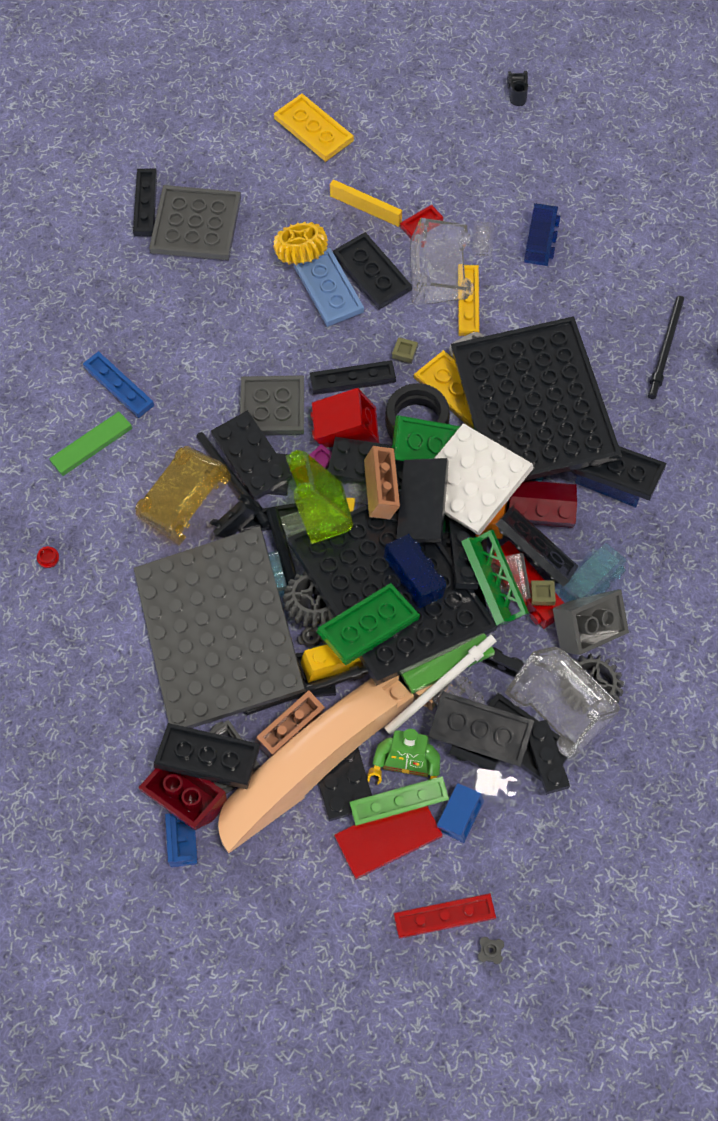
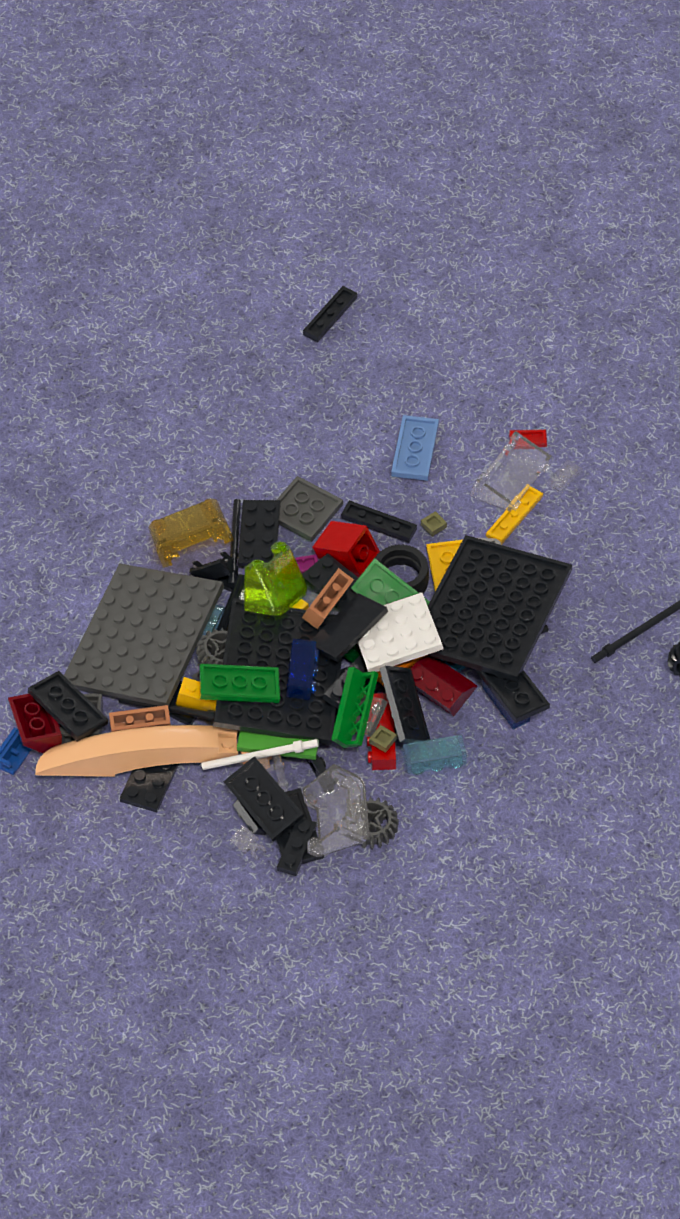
camera: 35 degrees right, 10 degrees down
(47, 557) = (68, 523): red plate -> none
(90, 443) = (156, 464): bright green tile -> none
(118, 384) = (207, 434): blue plate -> none
(195, 222) = (355, 348): dark grey plate -> none
(300, 243) = (417, 404): yellow gear -> none
(313, 127) = (503, 324): yellow plate -> none
(366, 203) = (494, 400): yellow tile -> none
(372, 270) = (458, 453): black plate -> none
(386, 839) = (150, 833): red tile -> none
(399, 800) = (173, 812): bright green tile -> none
(407, 754) = (203, 788): bright green torso -> none
(444, 916) = (147, 904): red tile -> none
(460, 812) = (210, 847): blue hinge -> none
(496, 945) = (159, 947): dark grey plate -> none
(542, 234) = (611, 496): clear blue brick -> none
(590, 621) = (405, 780): dark grey slope -> none

